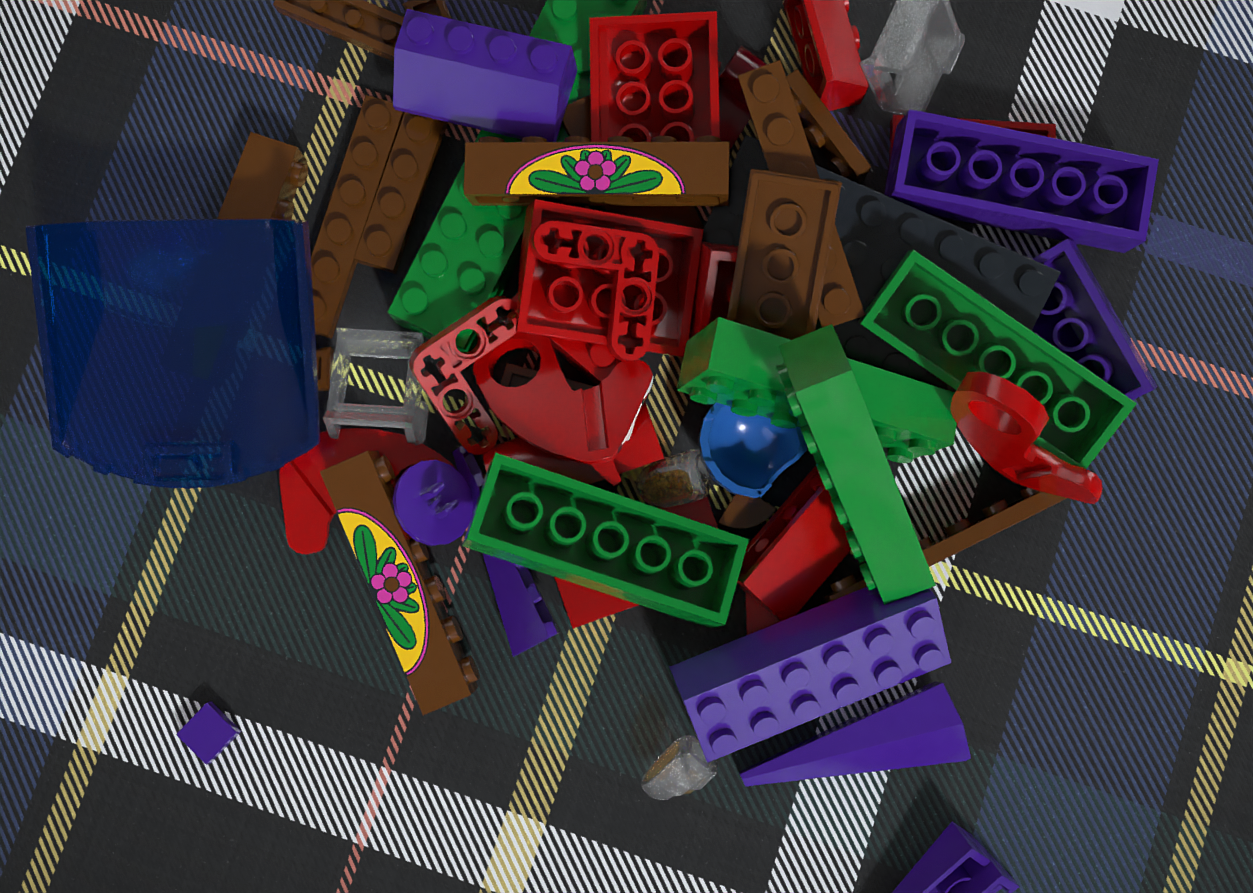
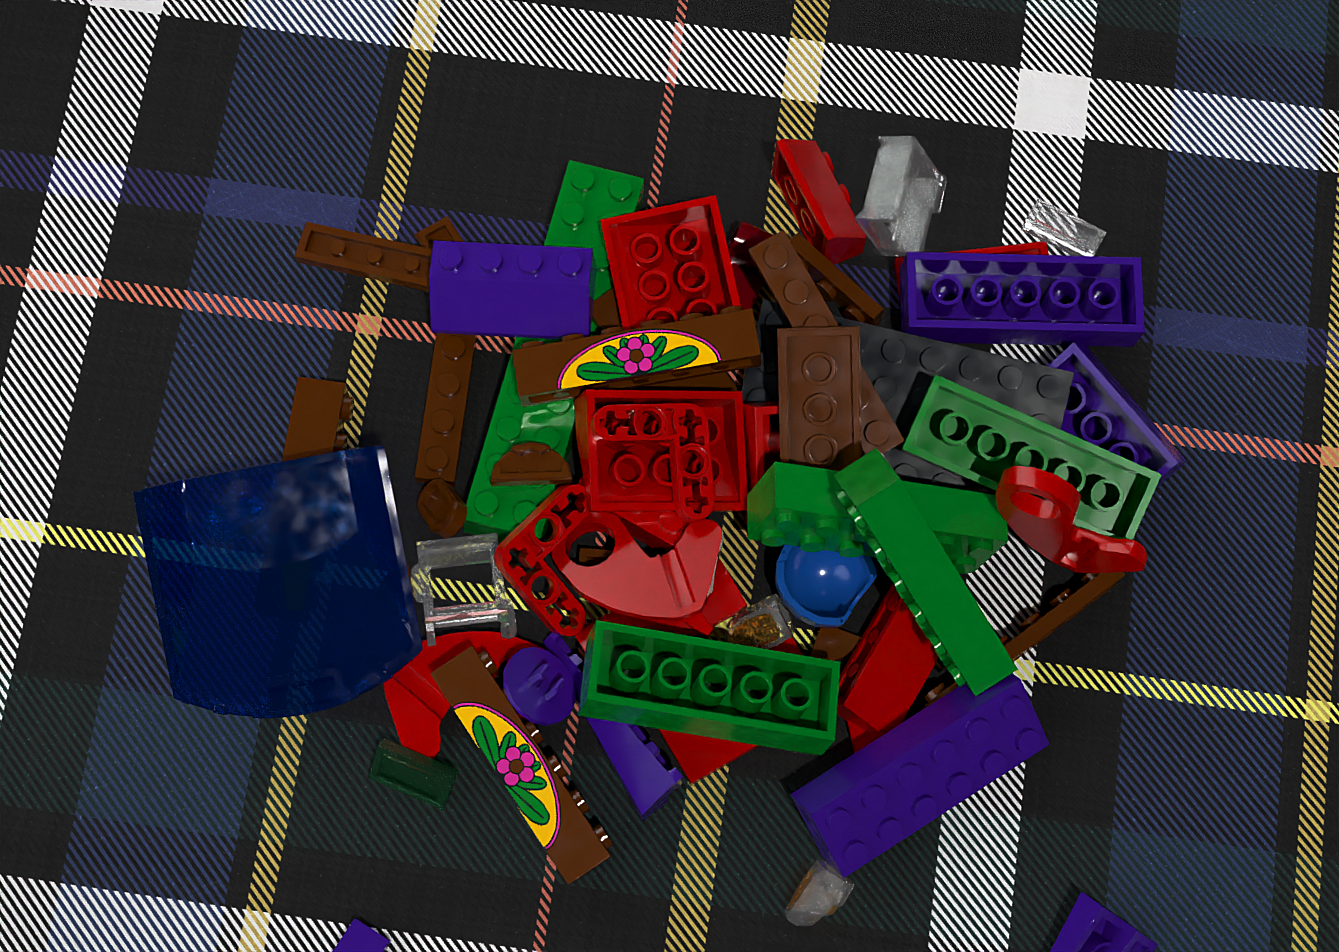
camera: 15 degrees left, 10 degrees down
(292, 566) = (413, 774): none -> clear green tile
(349, 209) = (405, 414): reddish brown plate -> none
(372, 296) = (442, 508): none -> reddish brown tile
(466, 269) = (531, 465): none -> reddish brown tile
(902, 734) = (1018, 823): dark purple wedge -> none
(1076, 115) = (1063, 230): none -> clear tile

